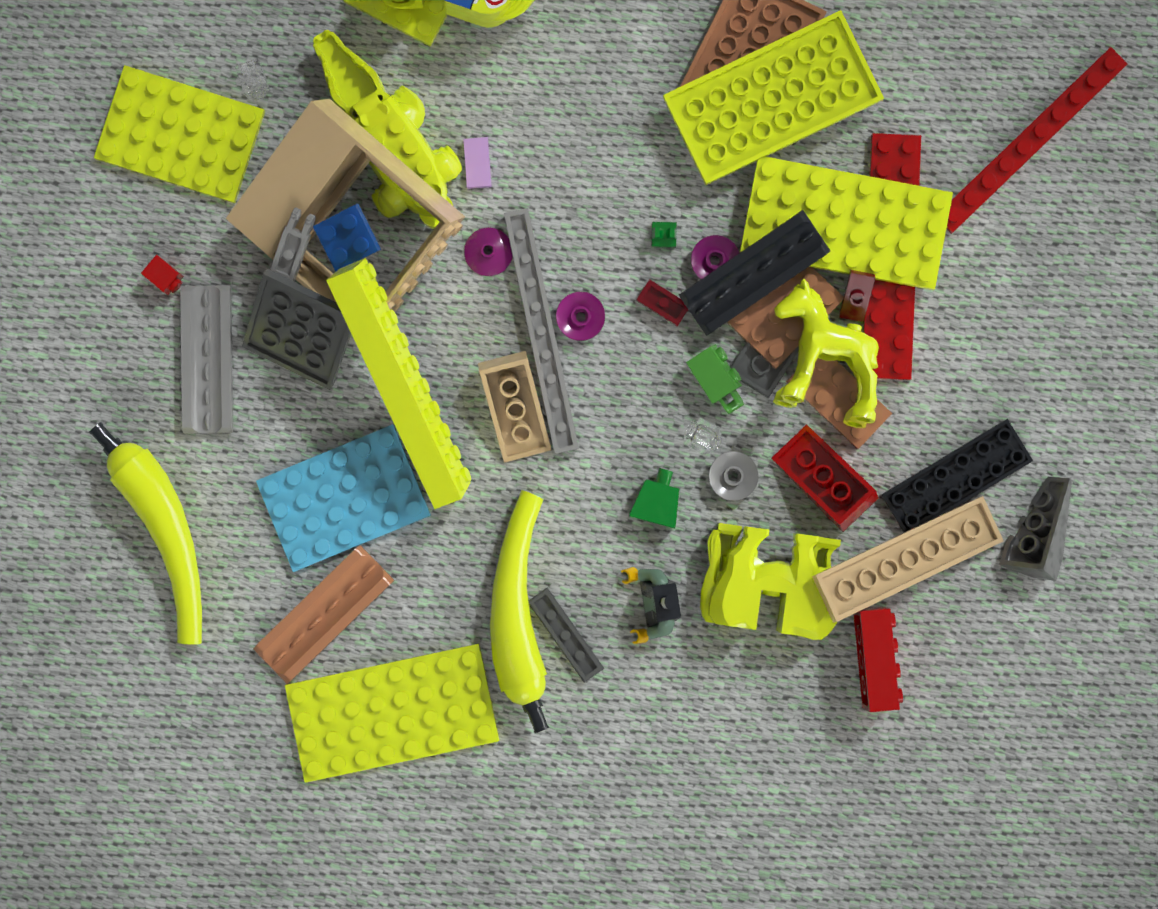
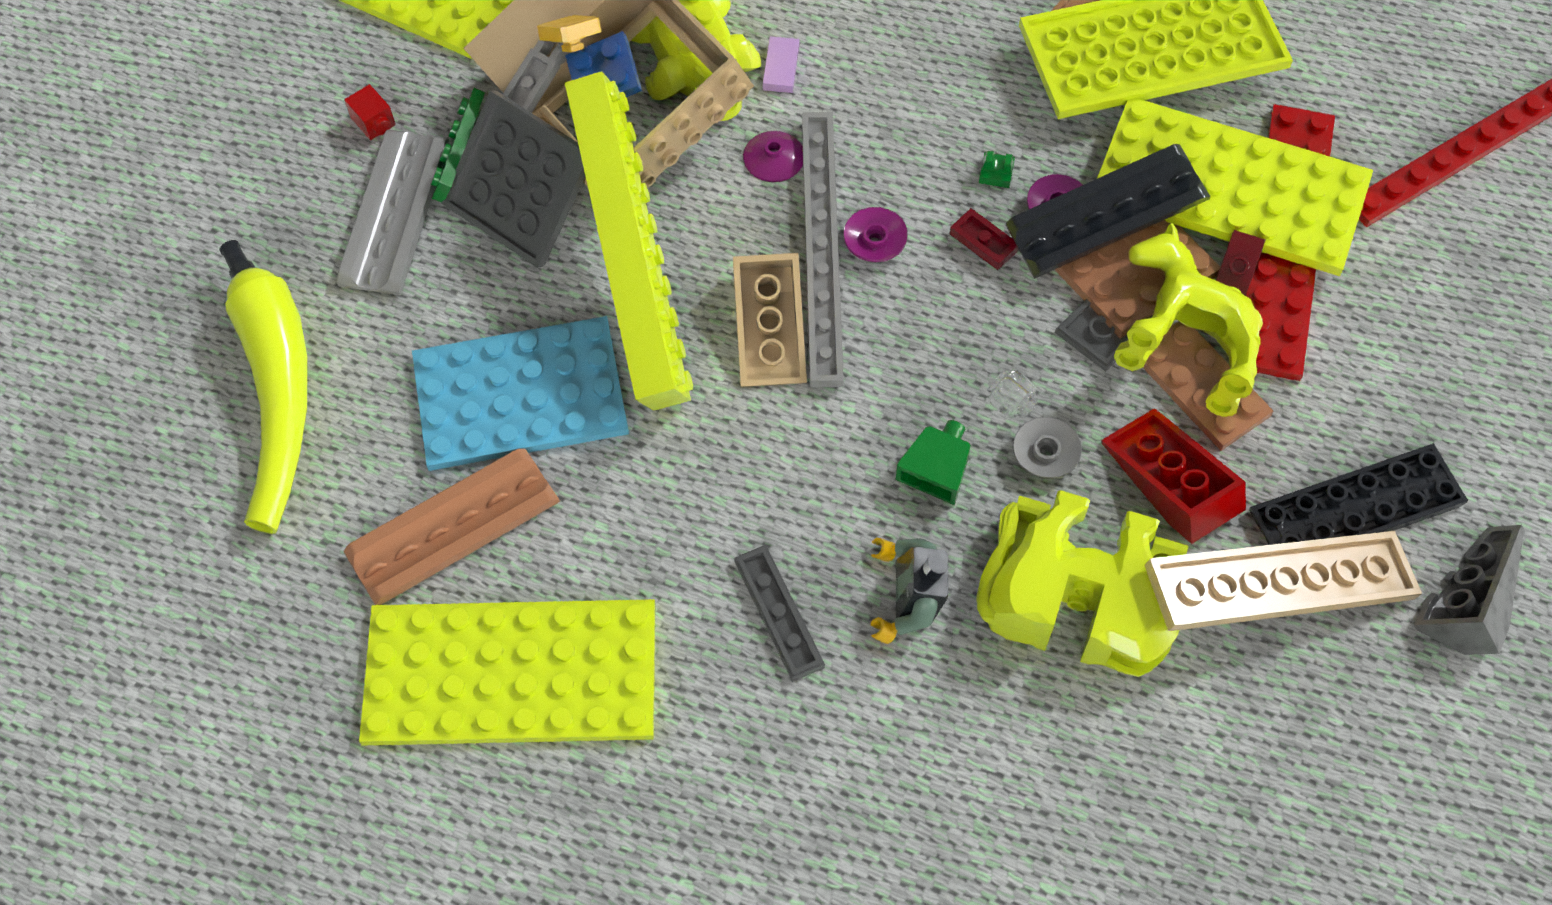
camera: 15 degrees right, 25 degrees down
(241, 284) = (452, 153): none -> green plate
(313, 212) = (569, 31): none -> yellow piece
(511, 630) = (703, 597): neon yellow animal -> none
(717, 377) = (1041, 326): bright green brick -> none
(877, 659) = (1227, 711): red brick -> none

